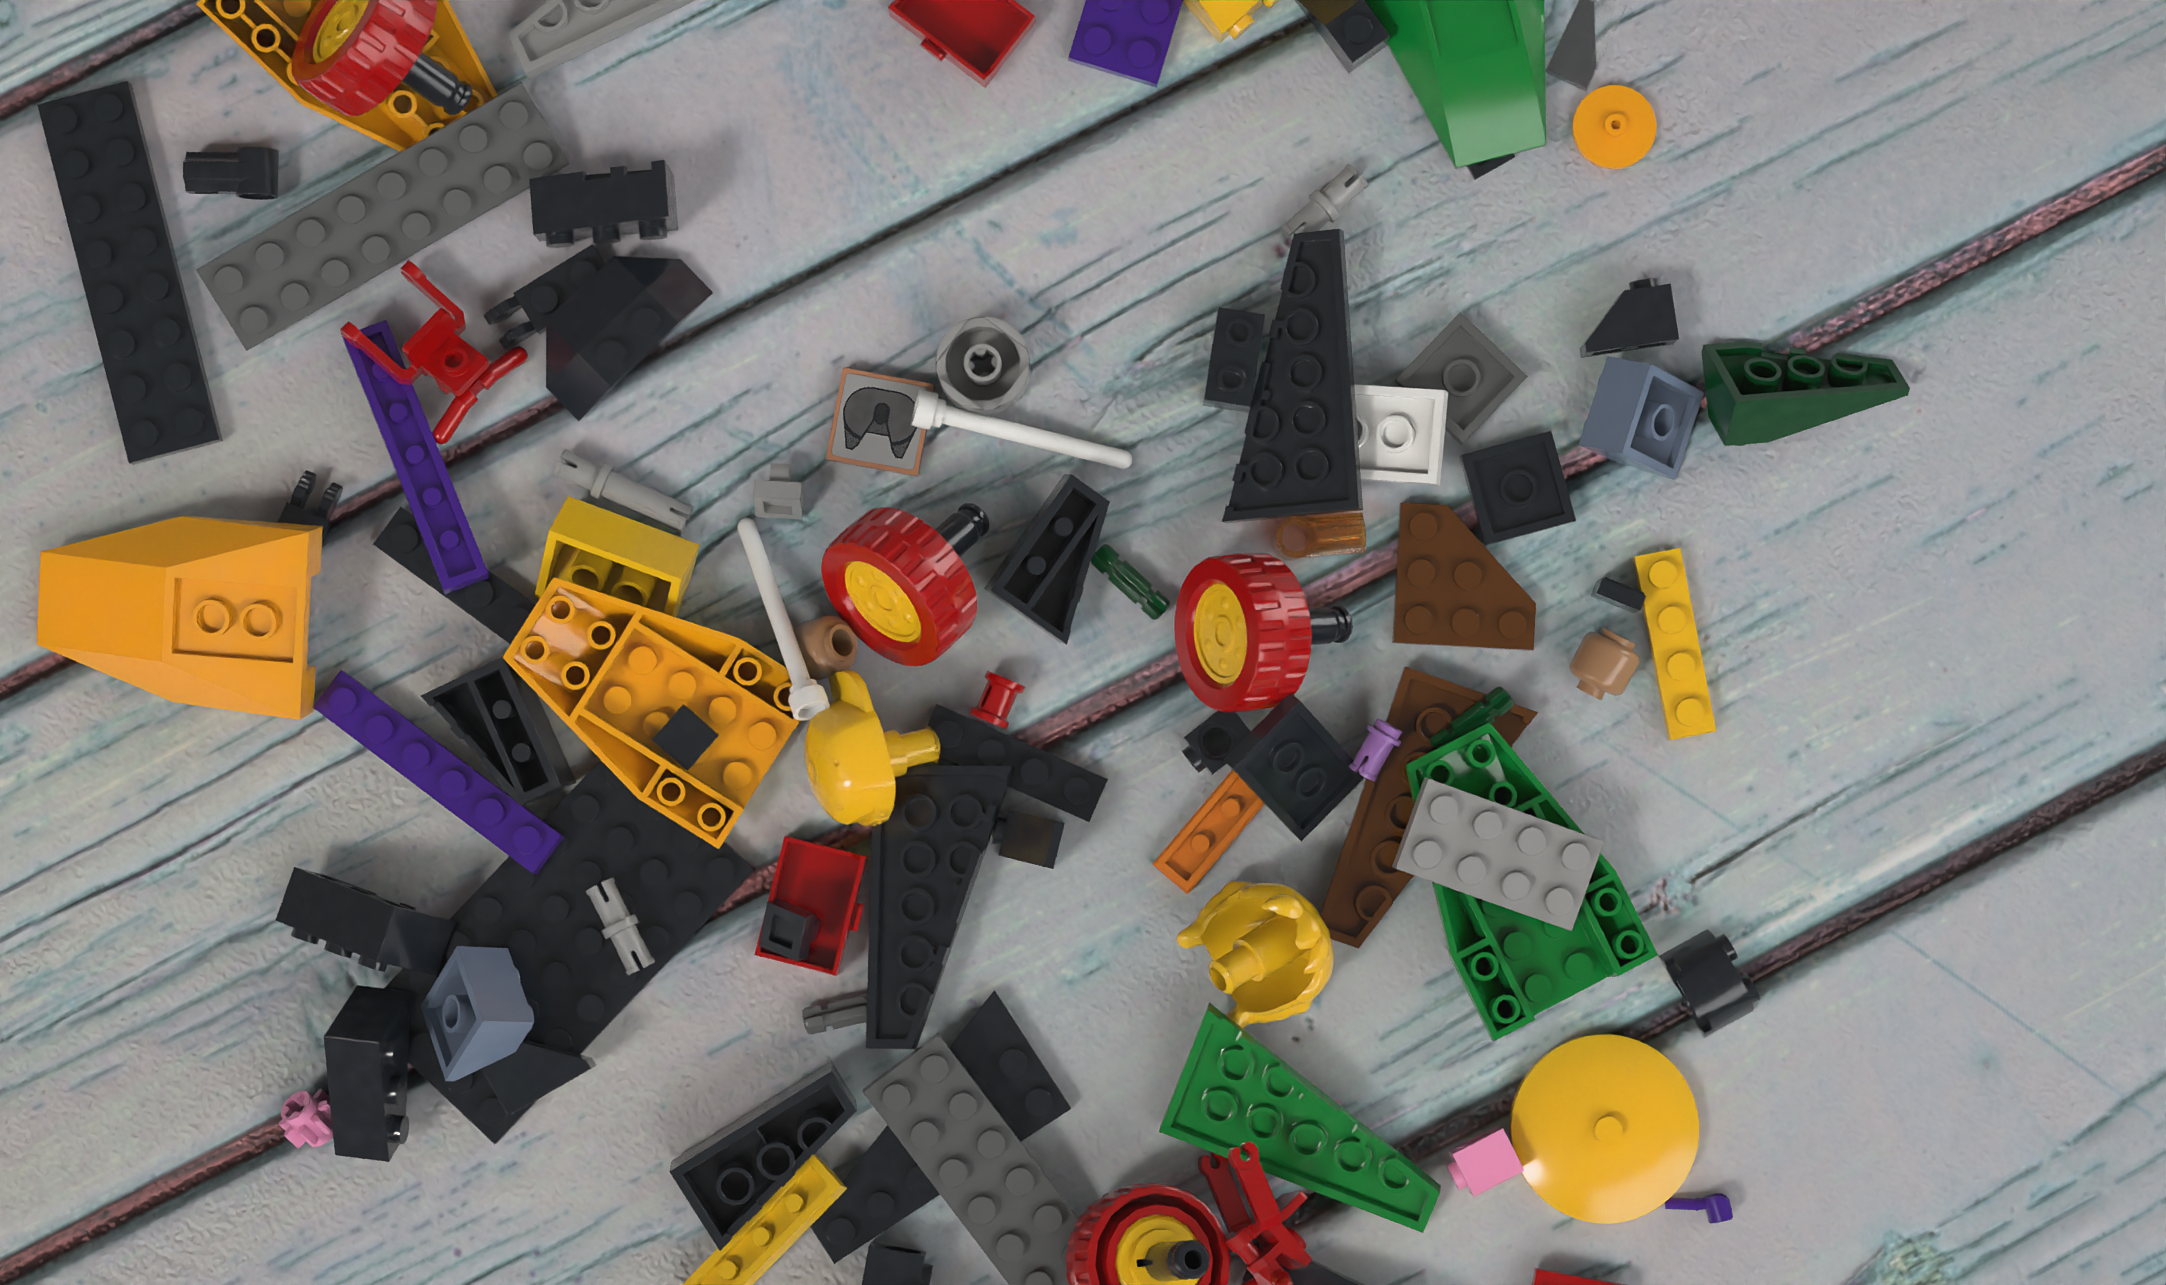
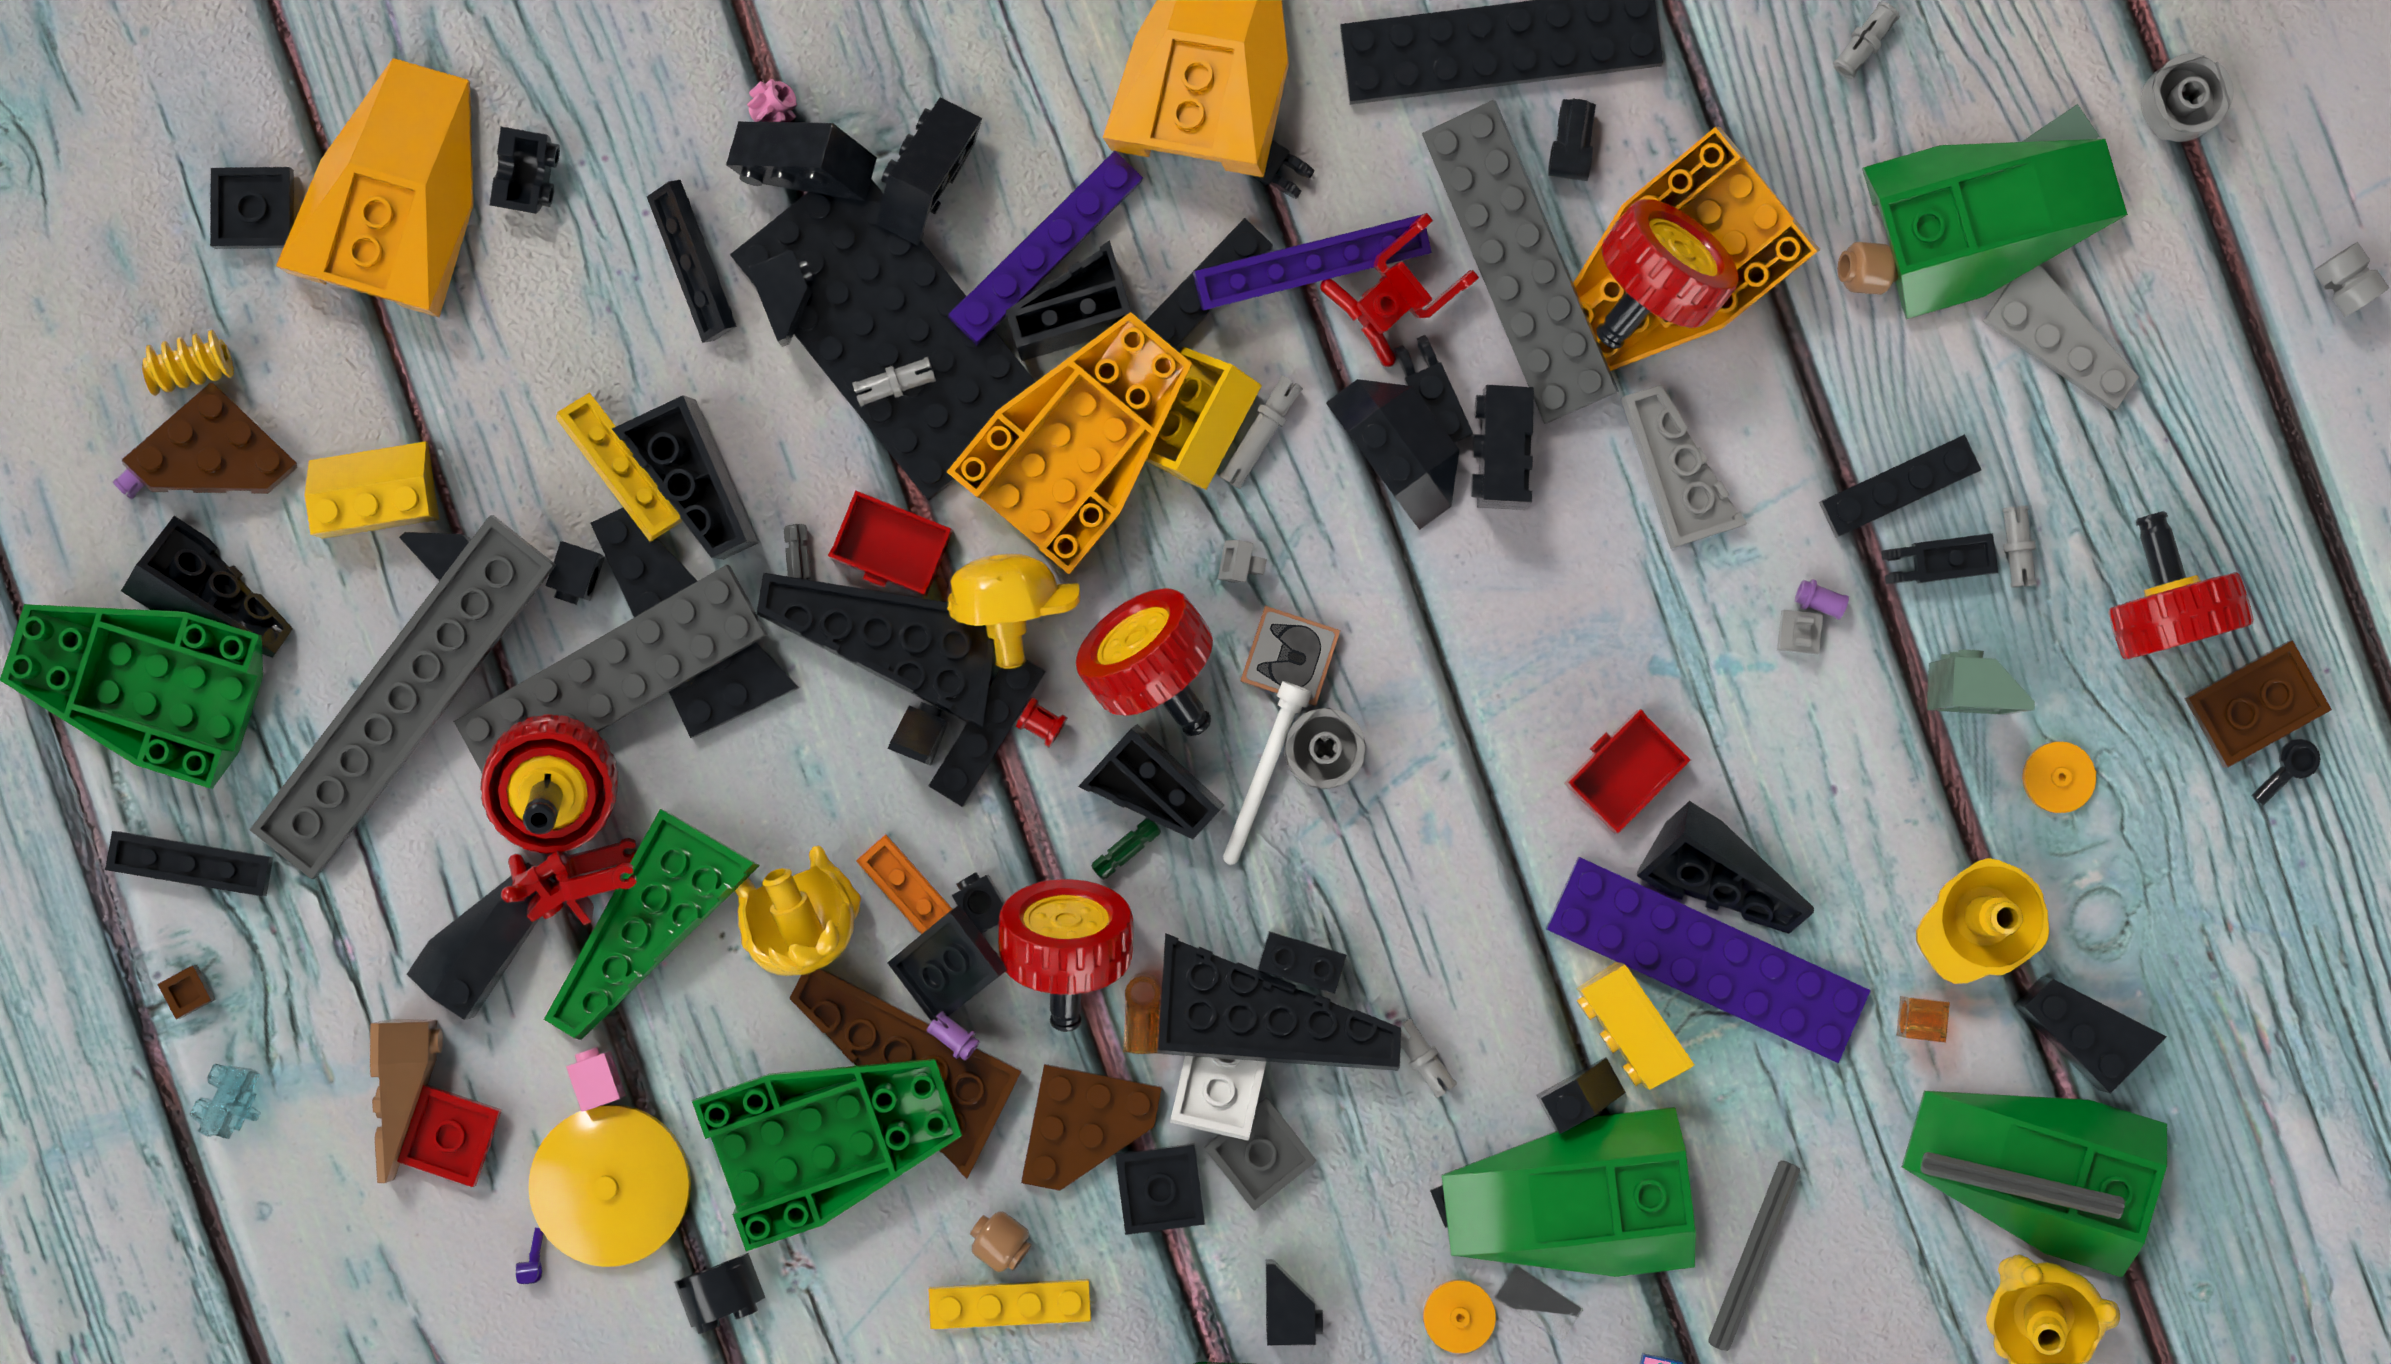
camera: 100 degrees right, 0 degrees up
(476, 1010) = (838, 252): sand blue slope -> none
(508, 1188) = (691, 261): none -> black plate
(685, 737) = (1044, 456): black tile -> none
(788, 929) = (871, 521): black tile -> none
(806, 695) = (1063, 561): white piece -> none
(826, 646) = (1104, 581): medium nougat head -> none
(1495, 703) = (969, 1124): dark green axle -> none
(1497, 854) = (848, 1126): light grey plate -> none
(1618, 595) = (1057, 1262): black tile -> none
(1641, 417) = (1206, 1303): sand blue slope -> none

